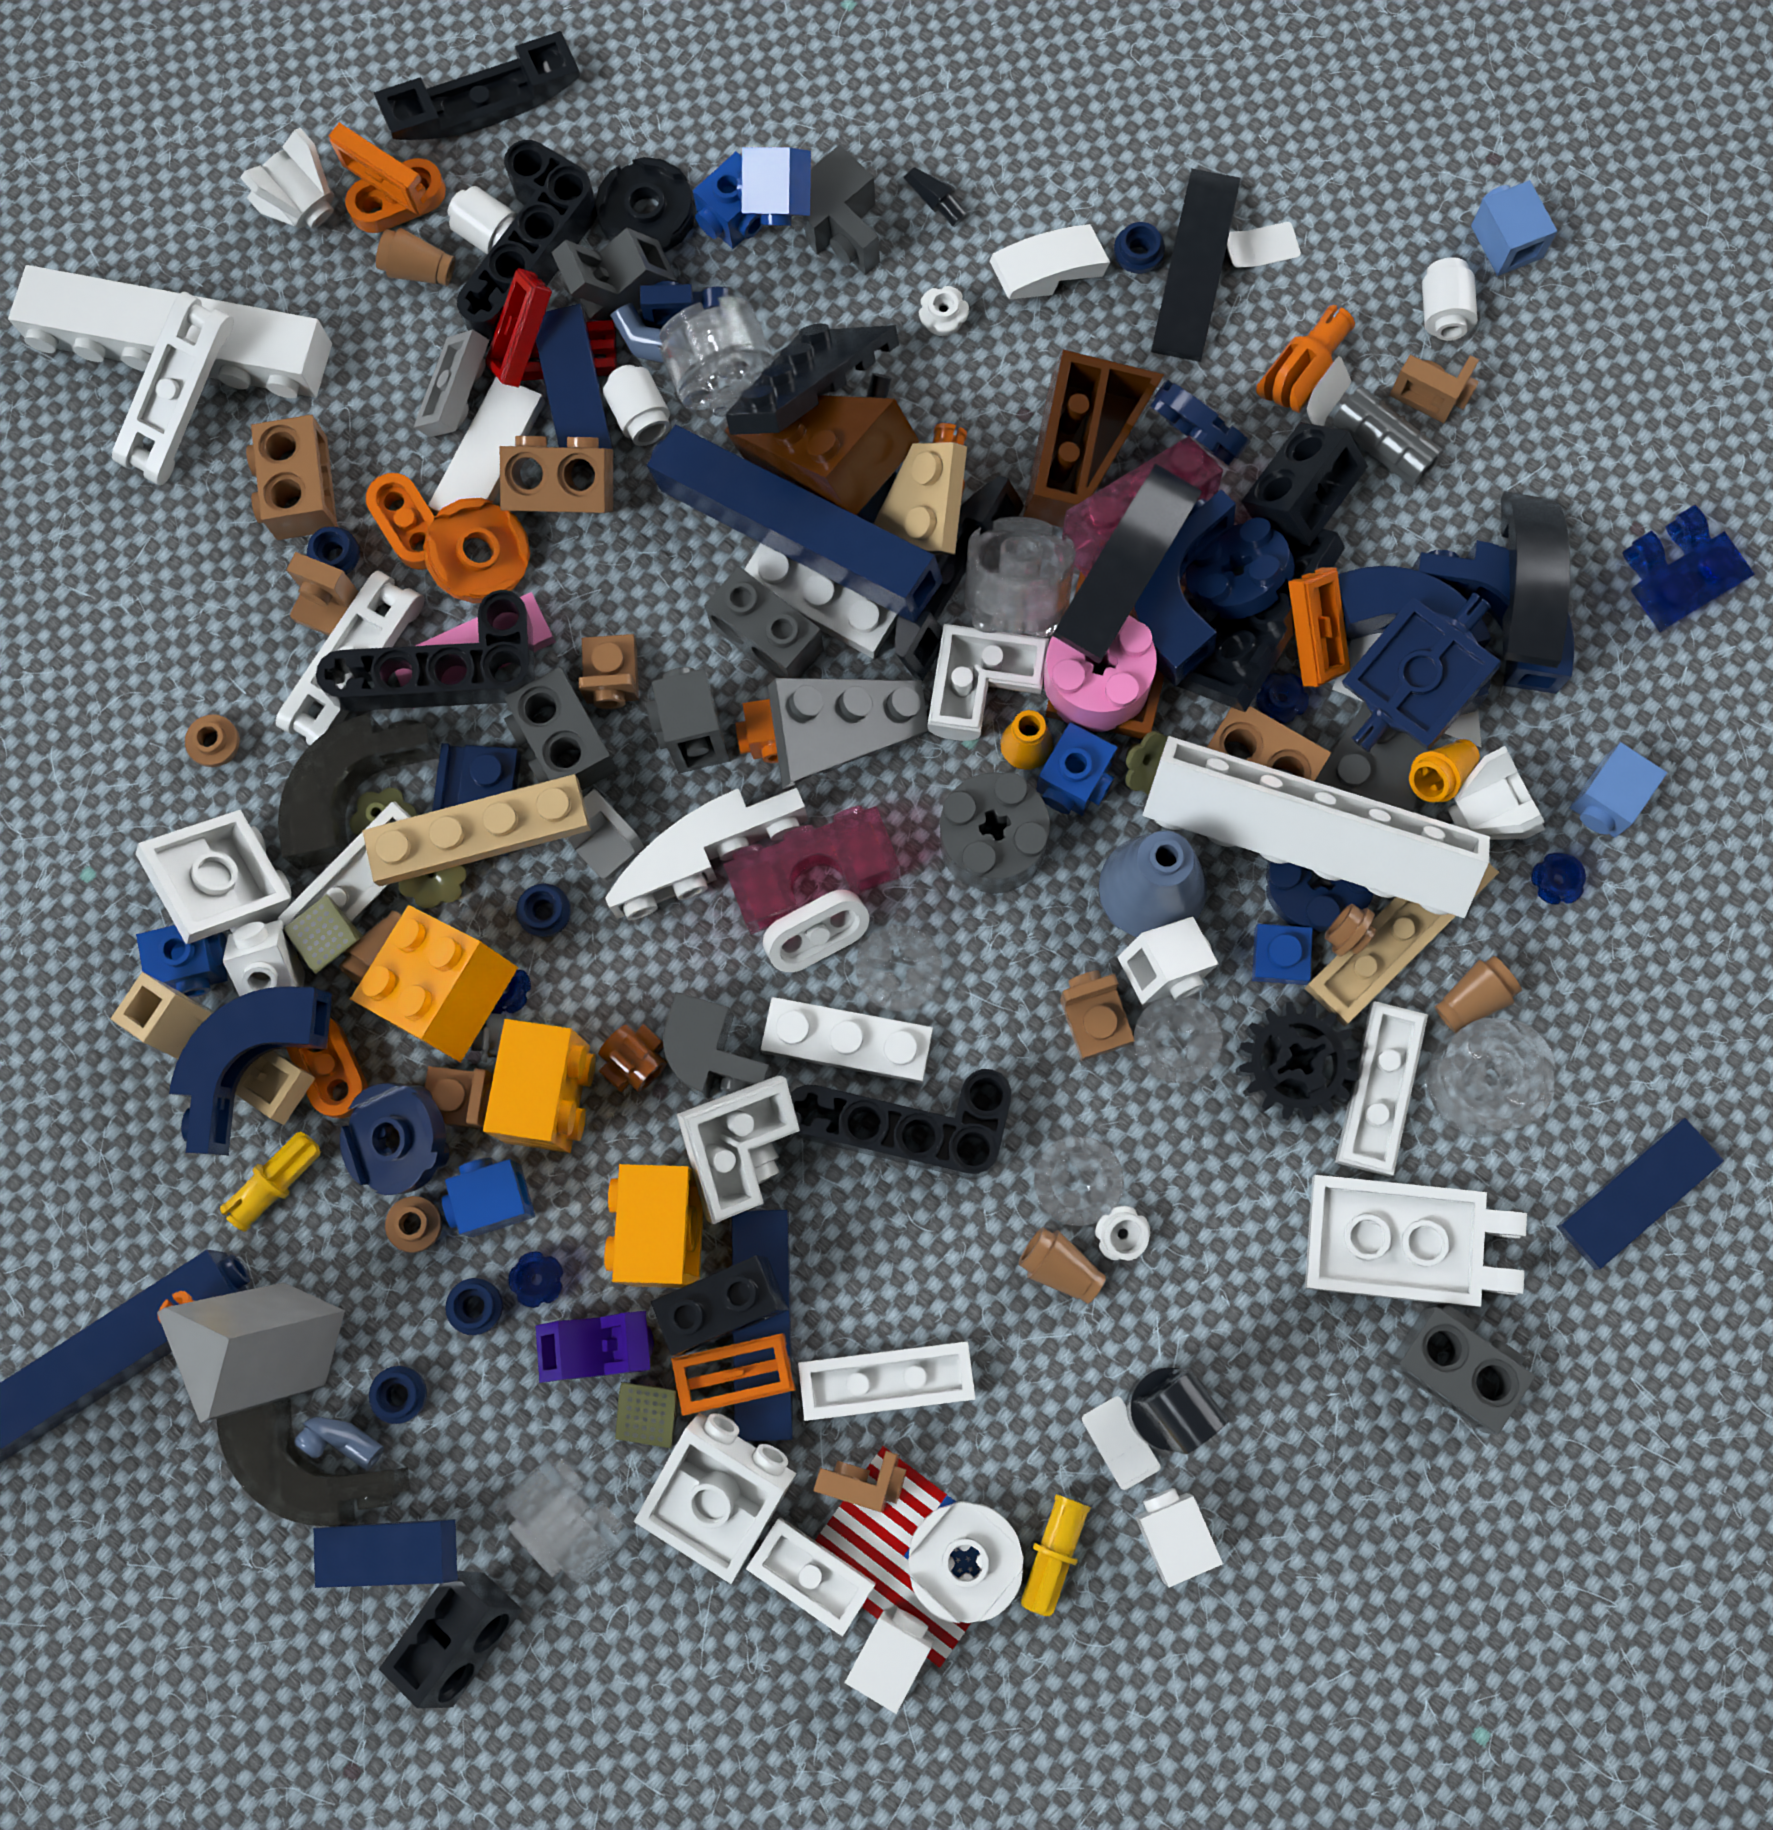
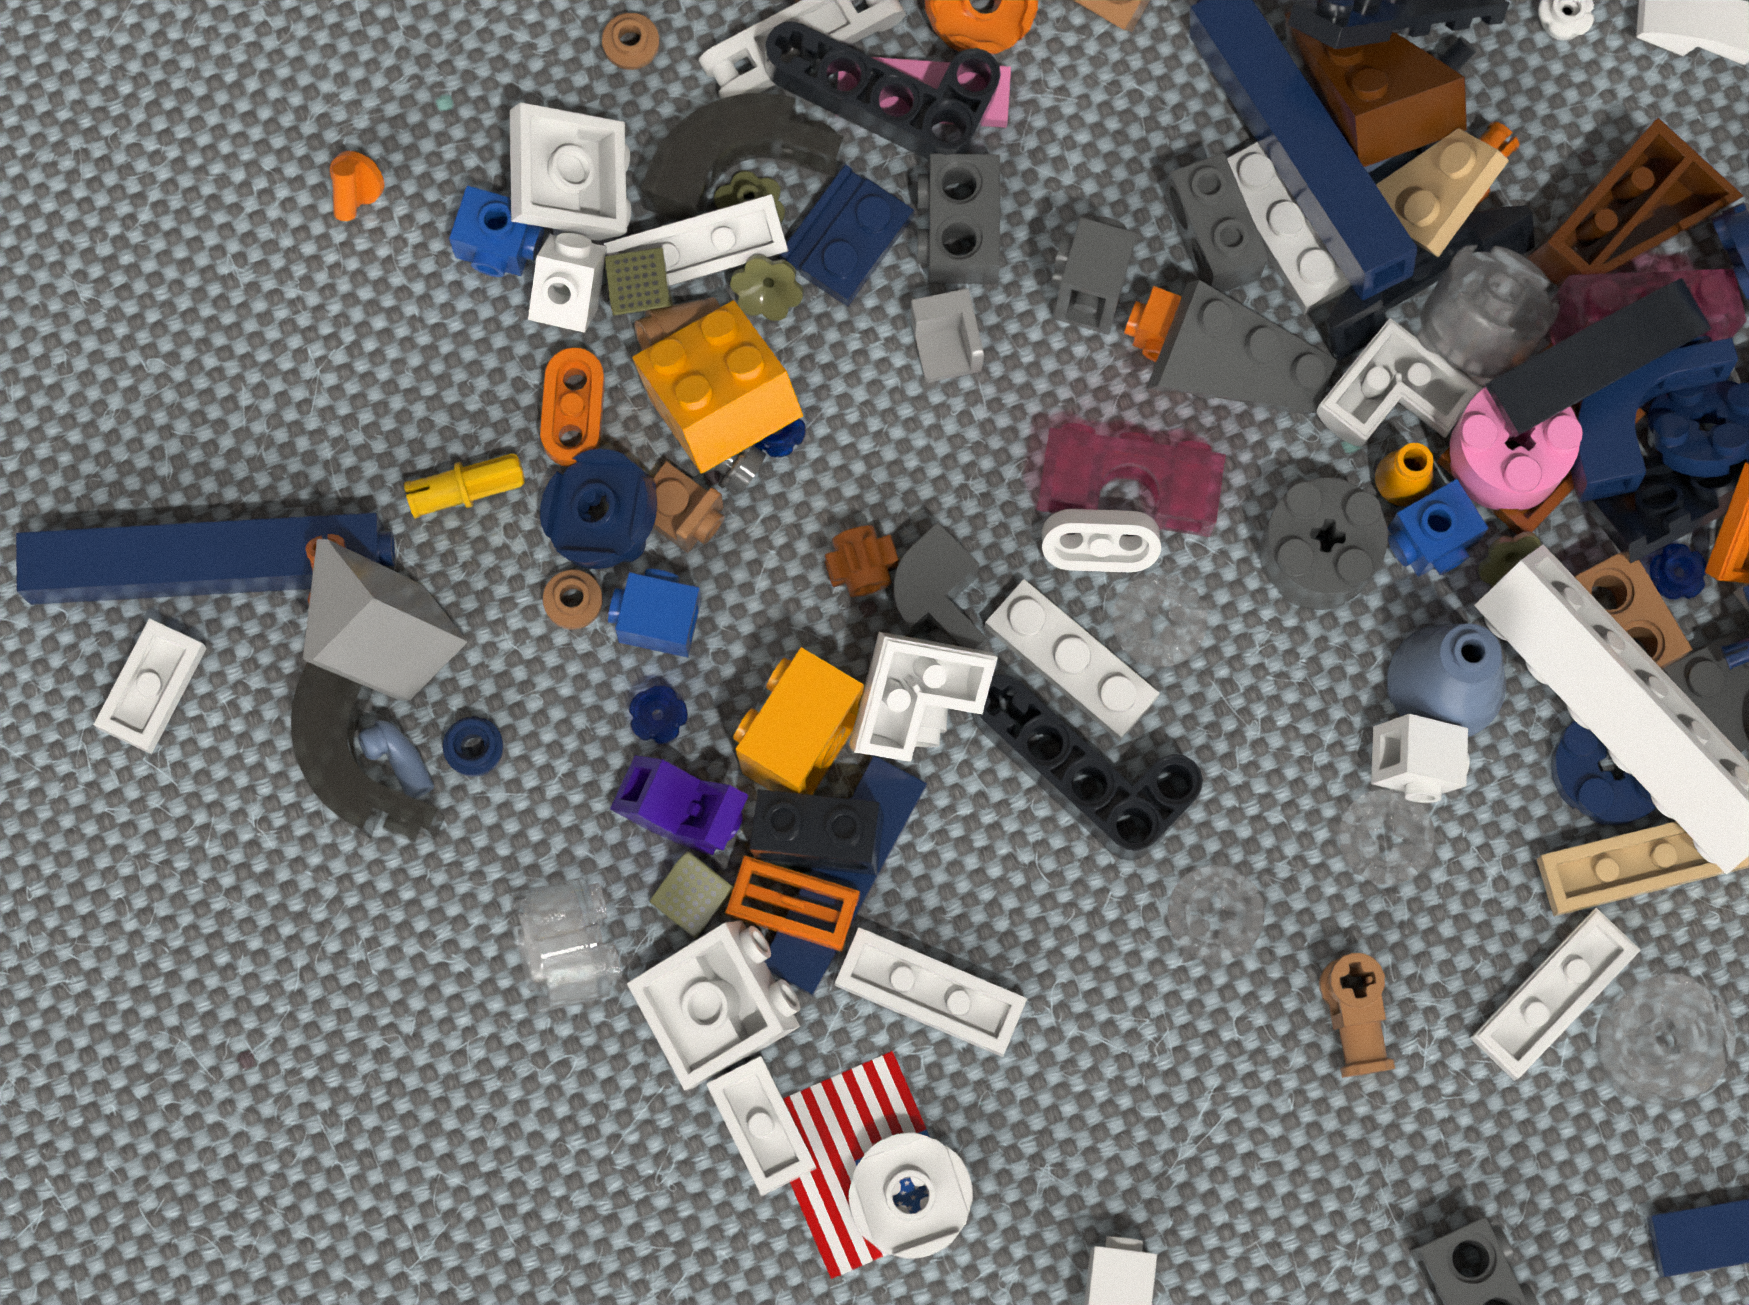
camera: 20 degrees right, 0 degrees up
(44, 983) = (354, 182): none -> orange plate
(97, 1502) = (150, 686): none -> white plate
(168, 1020) = (482, 331): tan arch -> none
(230, 1043) = (504, 335): dark blue arch -> none
(385, 1554) = (389, 879): dark blue tile -> none
(450, 1640) = (405, 989): black brick -> none
(457, 1306) = (581, 689): dark blue plate -> none
(476, 830) = (836, 265): tan plate -> none
(539, 895) = (857, 360): dark blue plate -> none
(539, 1086) = (762, 537): light orange brick -> none
(609, 671) = (1043, 184): medium nougat bracket -> none
(681, 855) = (1013, 397): white slope -> none
(851, 1484) = (845, 1068): medium nougat bracket -> none
(891, 1659) = (794, 1240): white brick -> none
(1054, 1555) = (996, 1238): yellow axle -> none
(1060, 1265) = (1153, 981): medium nougat cone -> none
(1096, 1014) = (1321, 769): medium nougat bracket -> none
(1120, 1447) = (1115, 1175): white sticker -> none
(1137, 1234) = (1240, 997): white plate -> none
(1173, 1410) = (1183, 1165): black beam -> none
(1238, 1198) = (1357, 1013): none -> medium nougat connector
(1282, 954) = (1534, 815): blue plate -> none
(1308, 1081) = (1489, 896): black gear -> none
(1351, 930) = (1612, 826): medium nougat plate -> none
(1406, 1242) = (1494, 1147): white tile -> none
(1478, 994) = (1707, 957): medium nougat cone -> none

